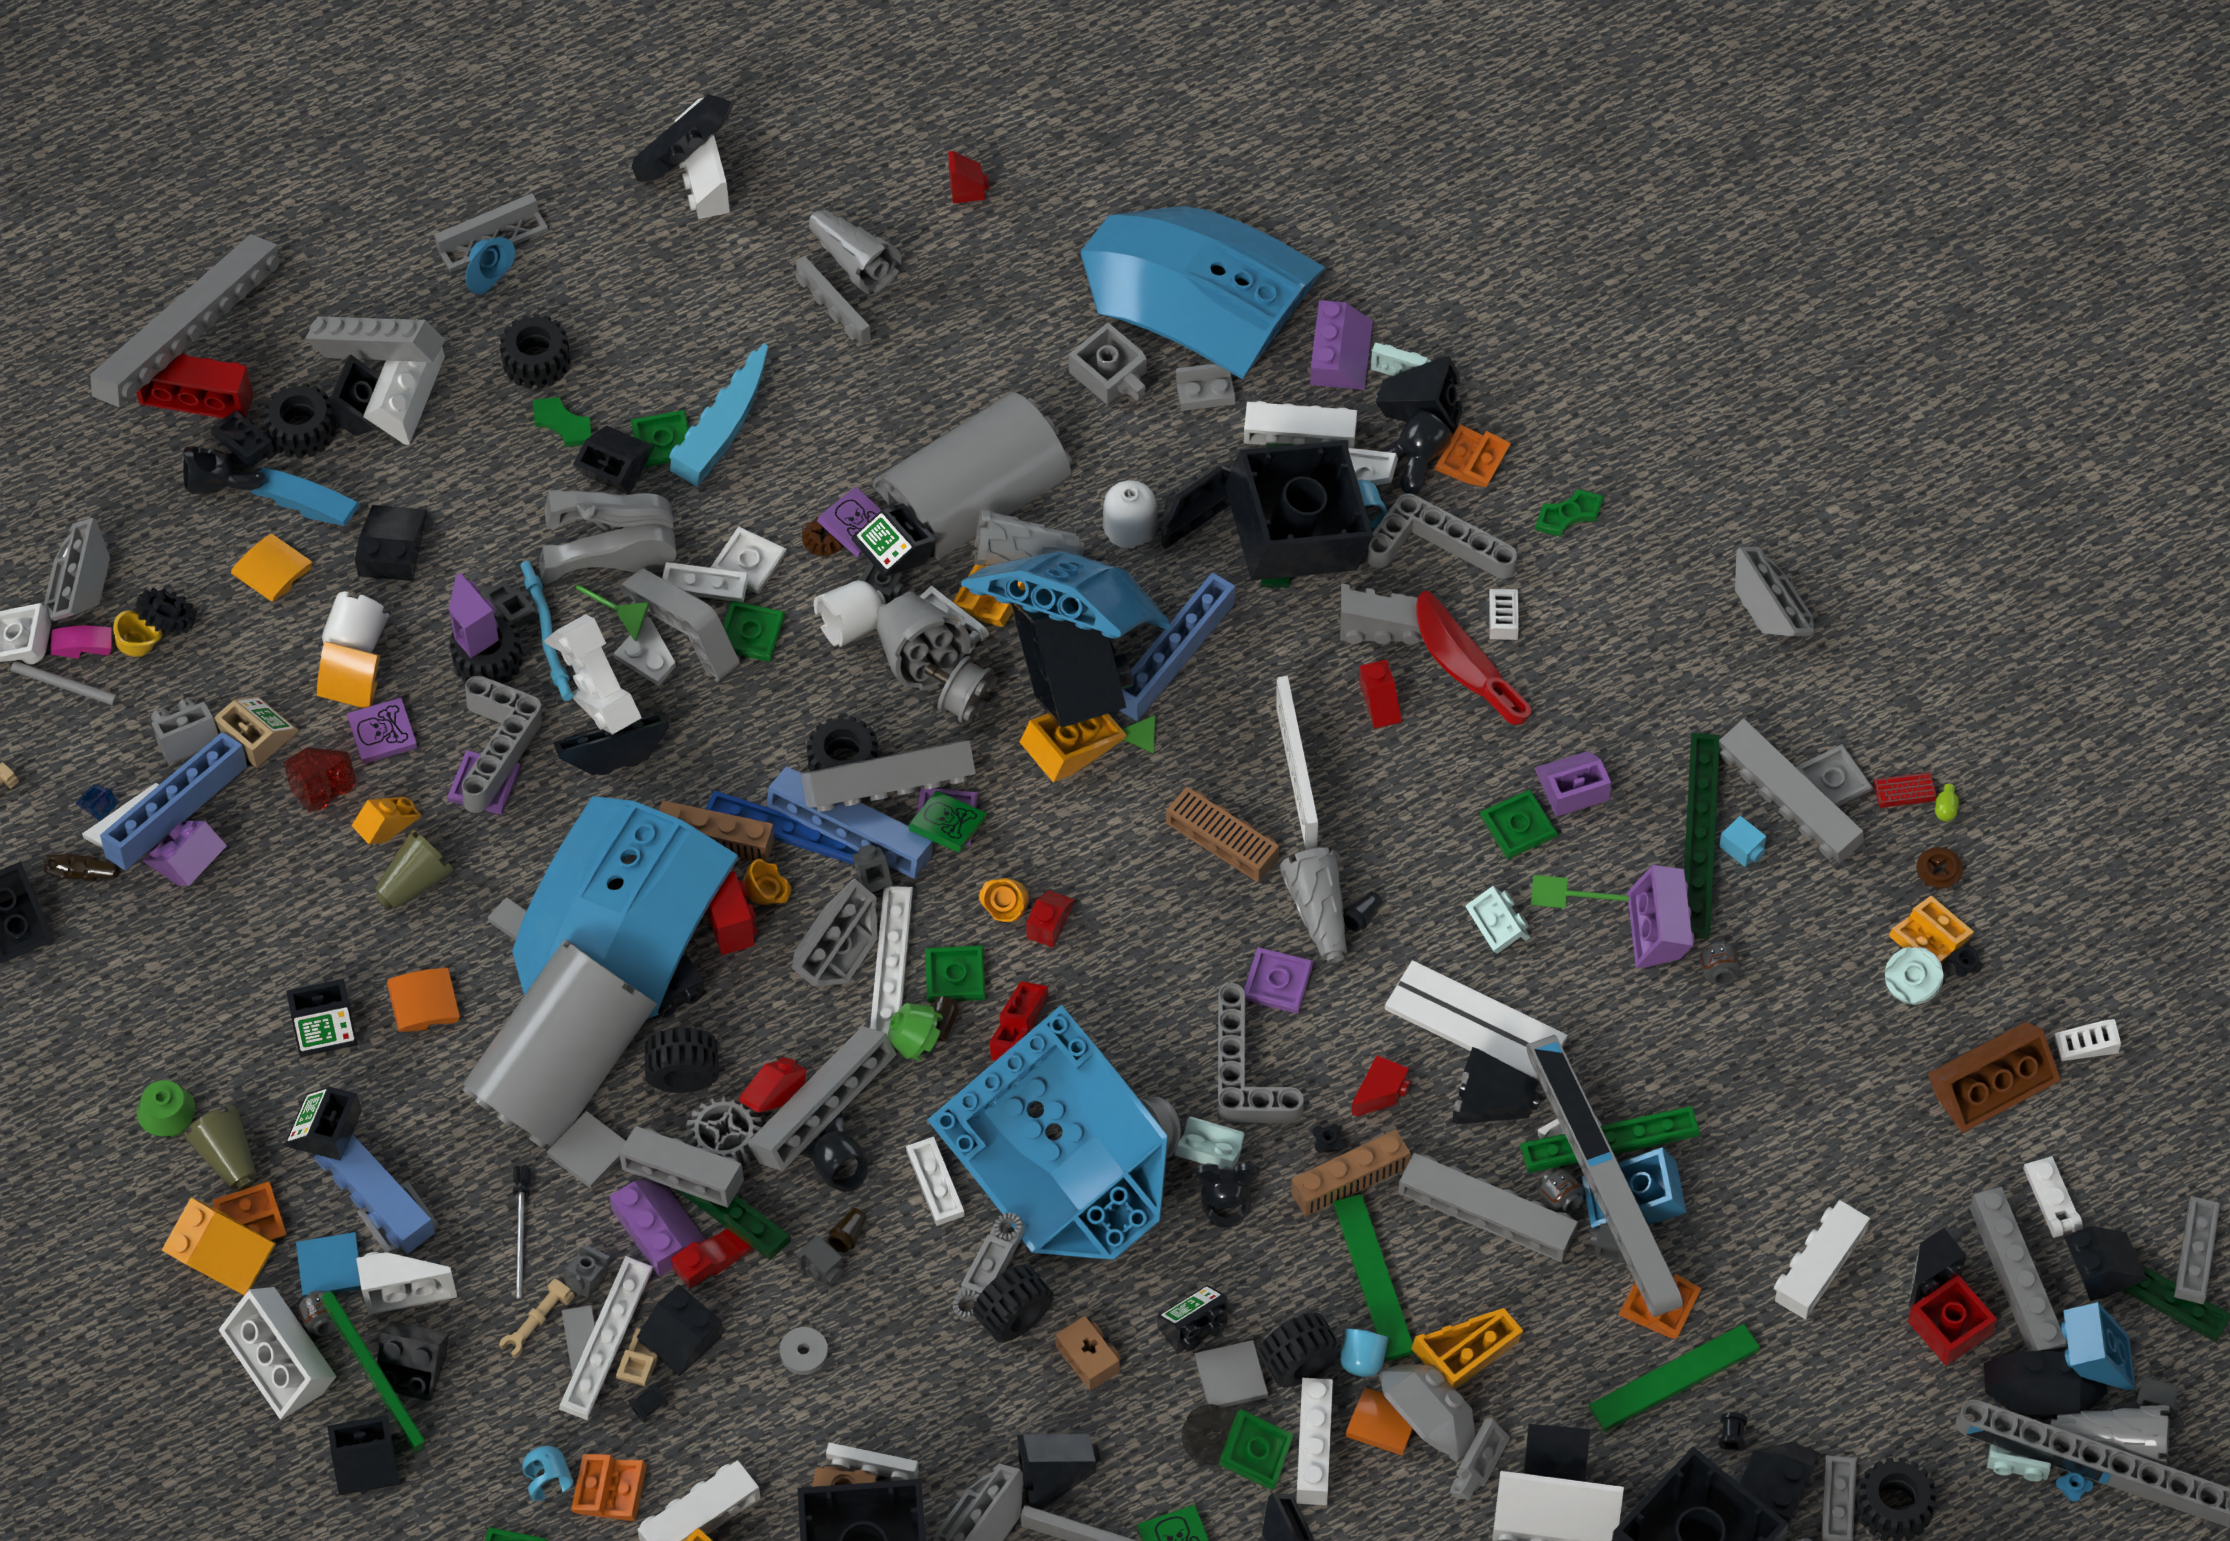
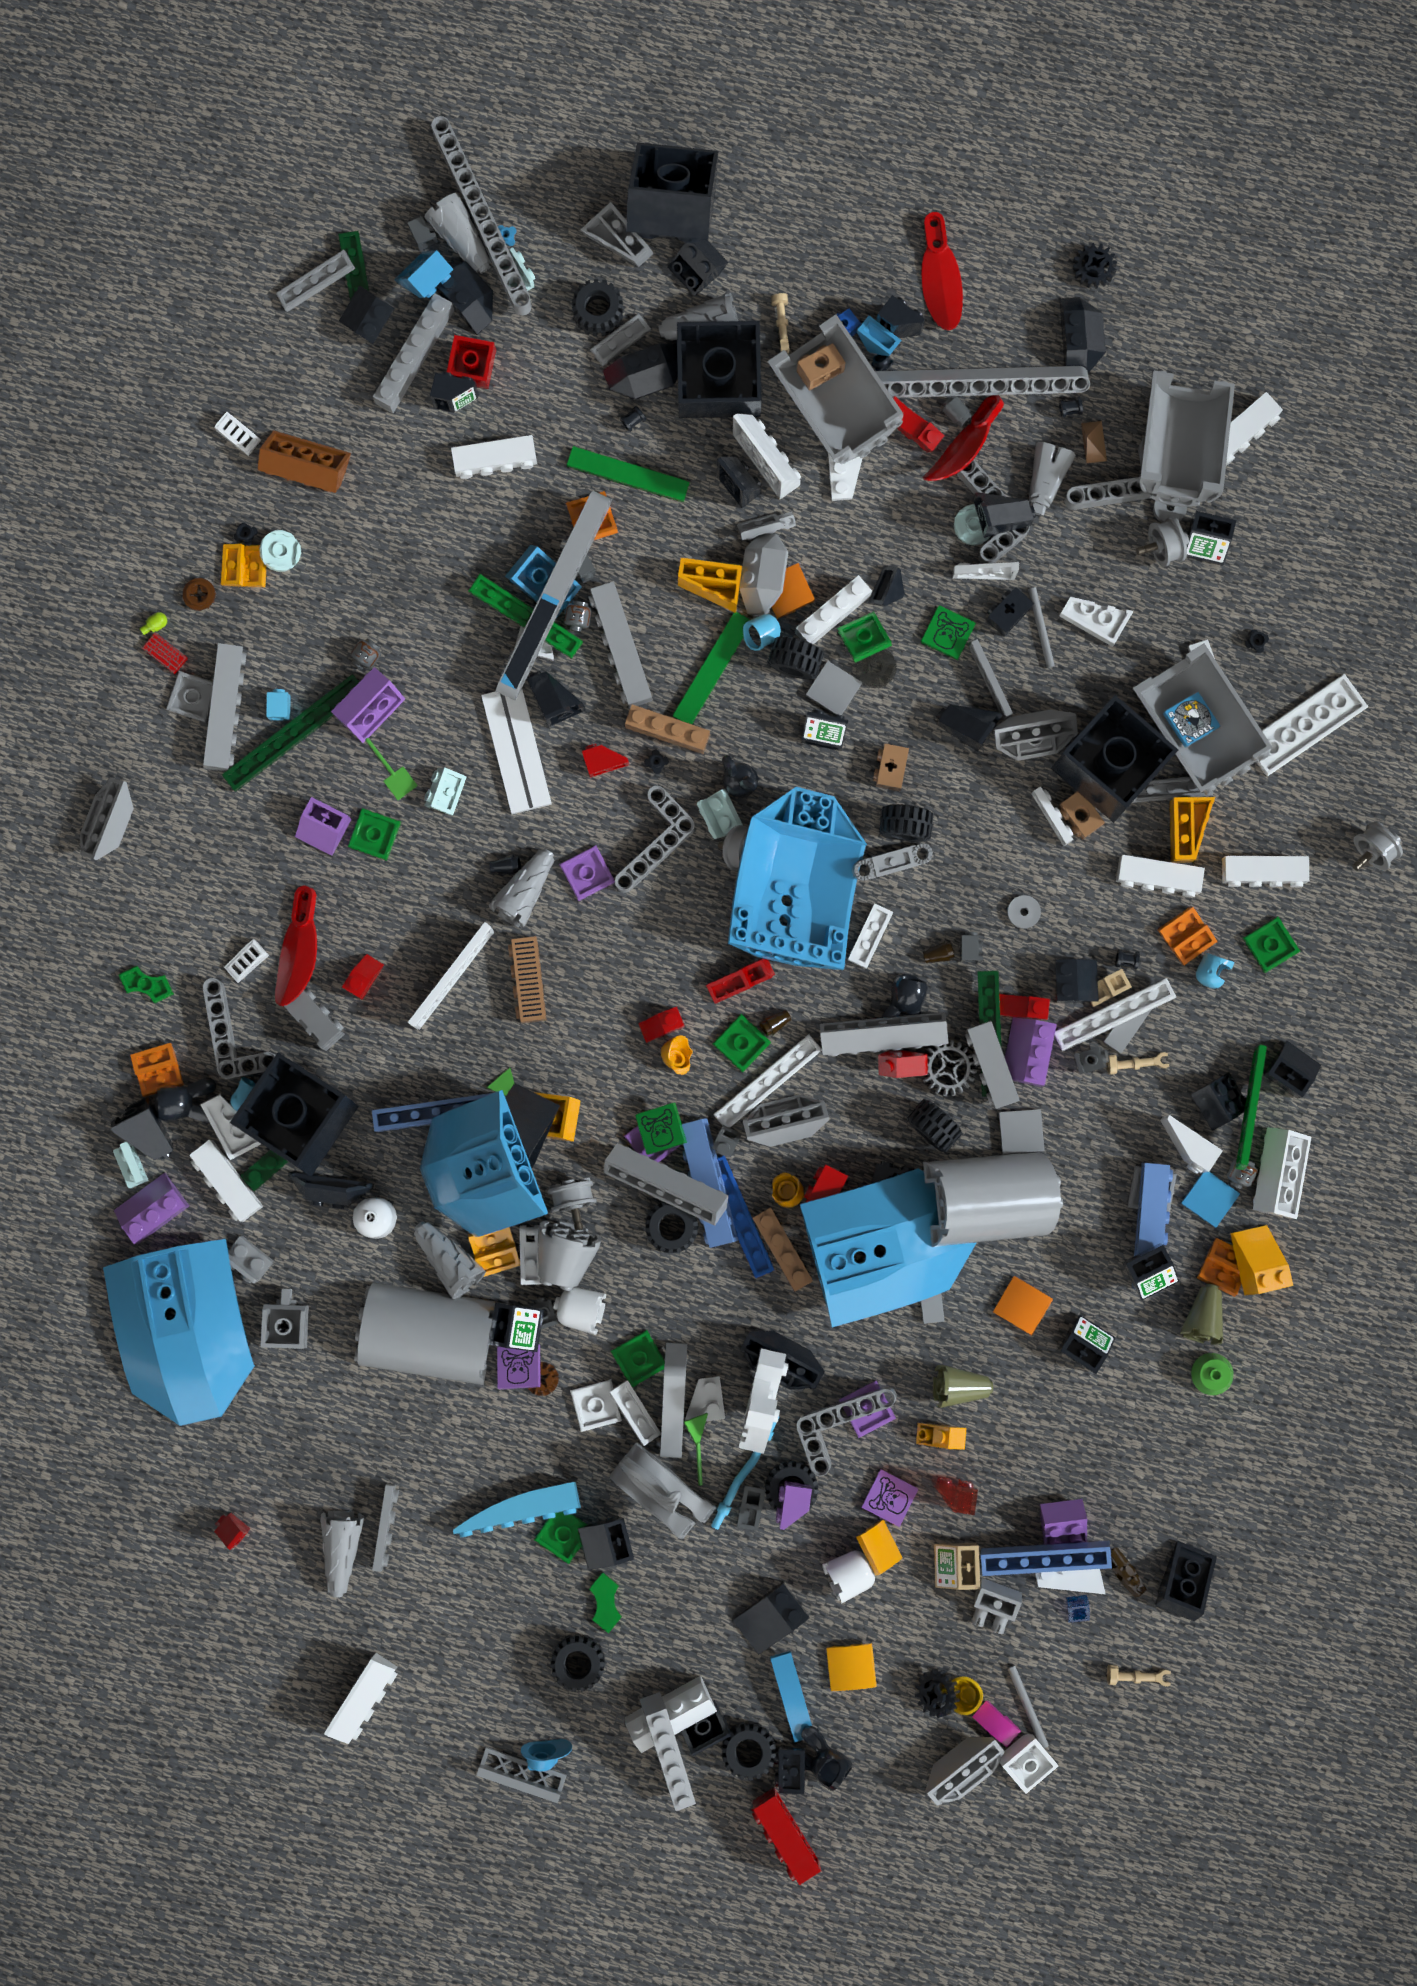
camera: 135 degrees left, 25 degrees up
(184, 321) = (758, 1878): light grey brick -> none
(521, 1177) = (1070, 1149): piece -> none
(681, 138) = (356, 1714): black brick -> none
(914, 1030) = (800, 1023): bright green cone -> none
(2052, 1196) = (348, 377): white plate -> none

